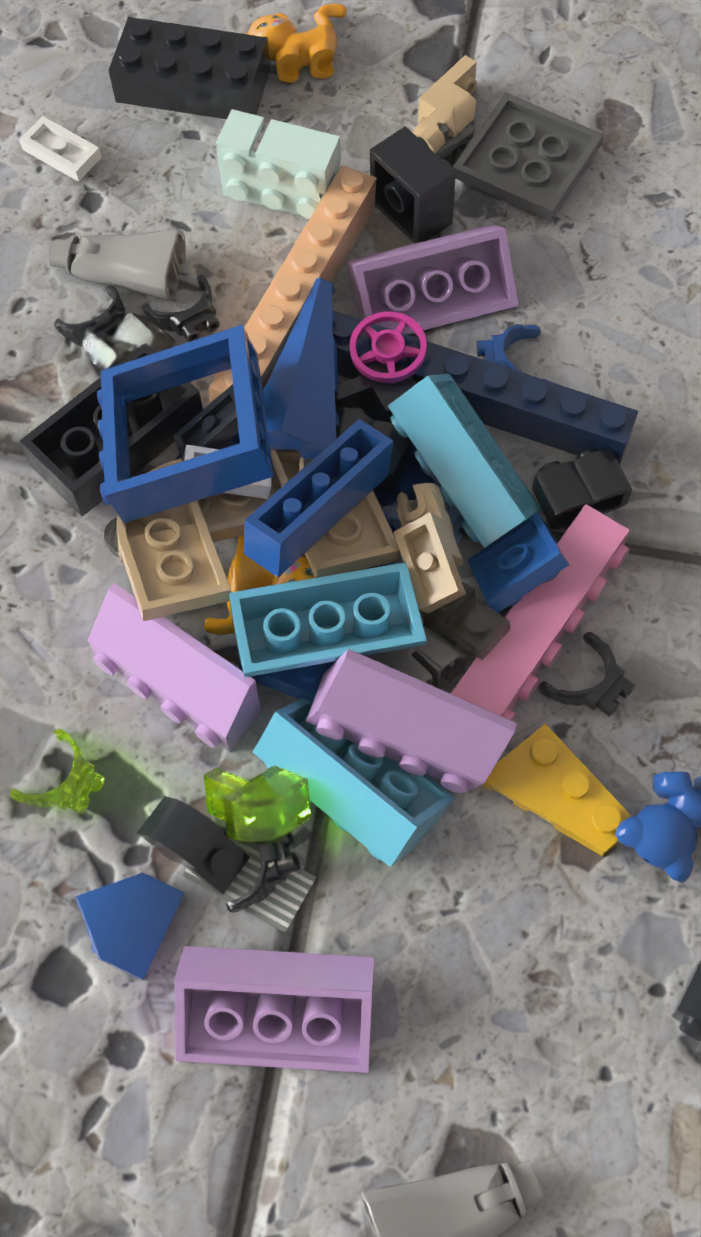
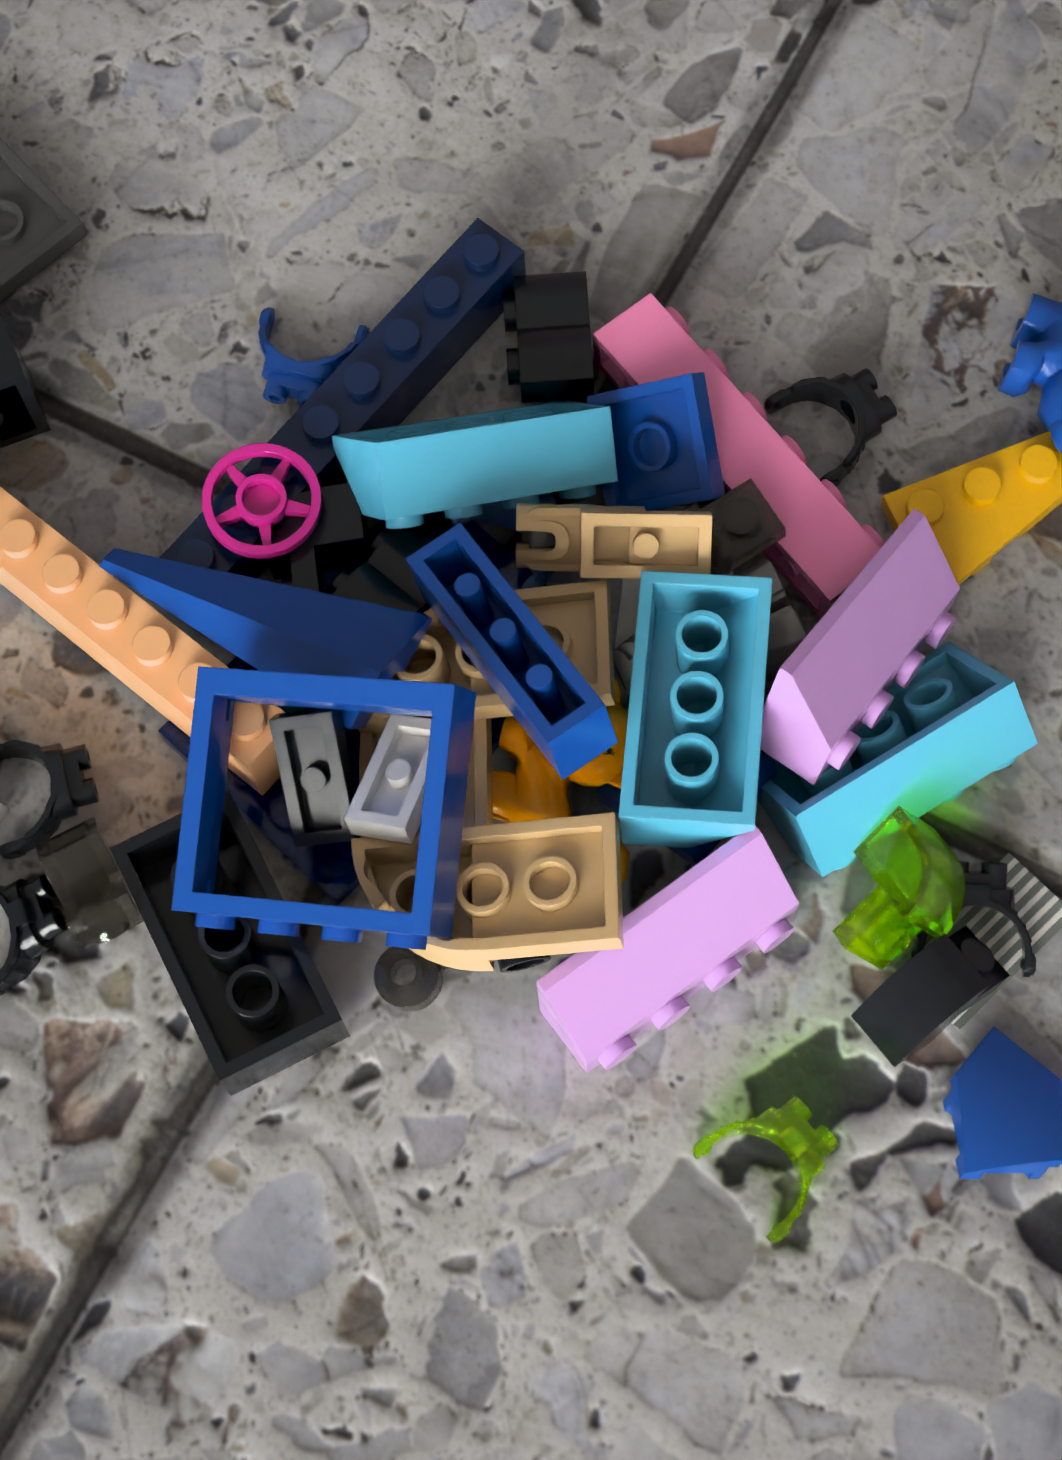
camera: 70 degrees left, 5 degrees up
(437, 279) = (135, 420): lavender slope -> none

